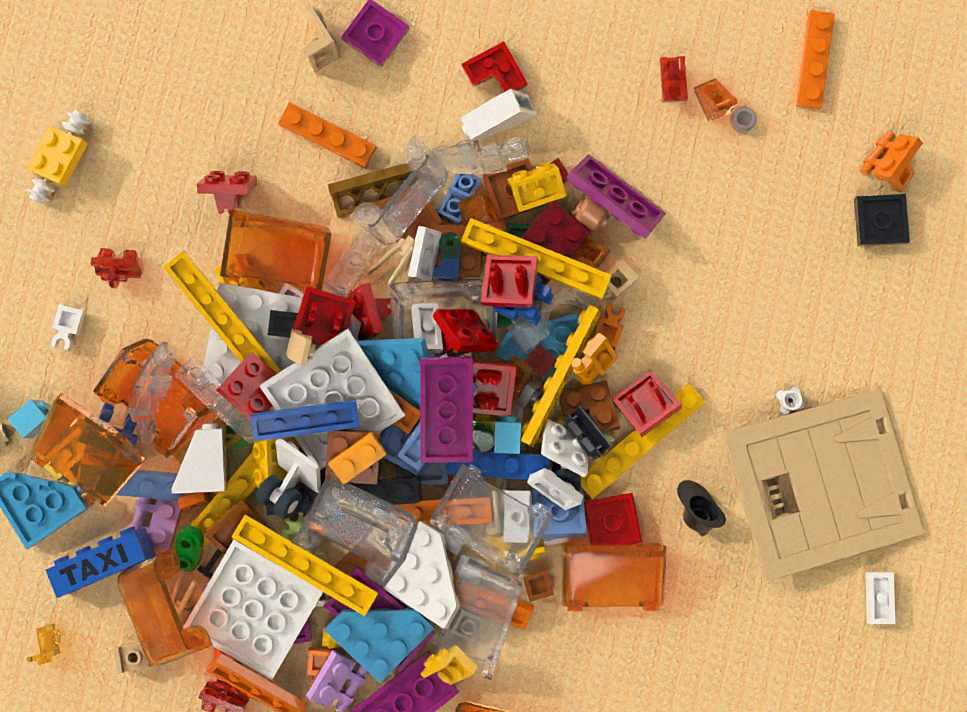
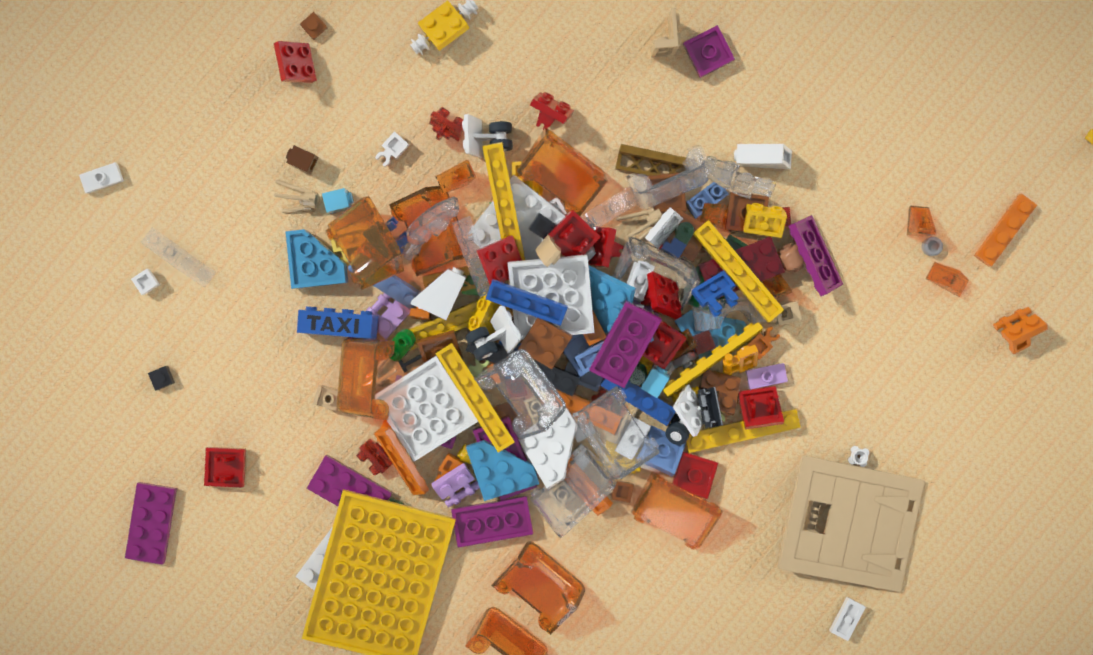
camera: 30 degrees right, 5 degrees up
(49, 641) = (277, 357): clear yellow bracket -> none
(151, 258) = (474, 138): none -> white plate
(156, 320) = (456, 177): none -> clear orange slope
(327, 135) = (637, 107): orange plate -> none
(357, 458) = (548, 346): light orange plate -> none
(450, 664) = (538, 514): yellow bracket -> none
(495, 63) = (781, 117): red plate -> none
(509, 281) = (713, 278): red plate -> none
(555, 489) = (669, 434): white plate -> none
(634, 363) = (766, 376): none -> lavender plate
(673, 79) = (899, 193): clear red hips -> none
(699, 508) = (758, 497): black piece -> none
(780, 146) = (947, 278): none -> clear orange slope
(881, 220) = (989, 366): black plate -> none

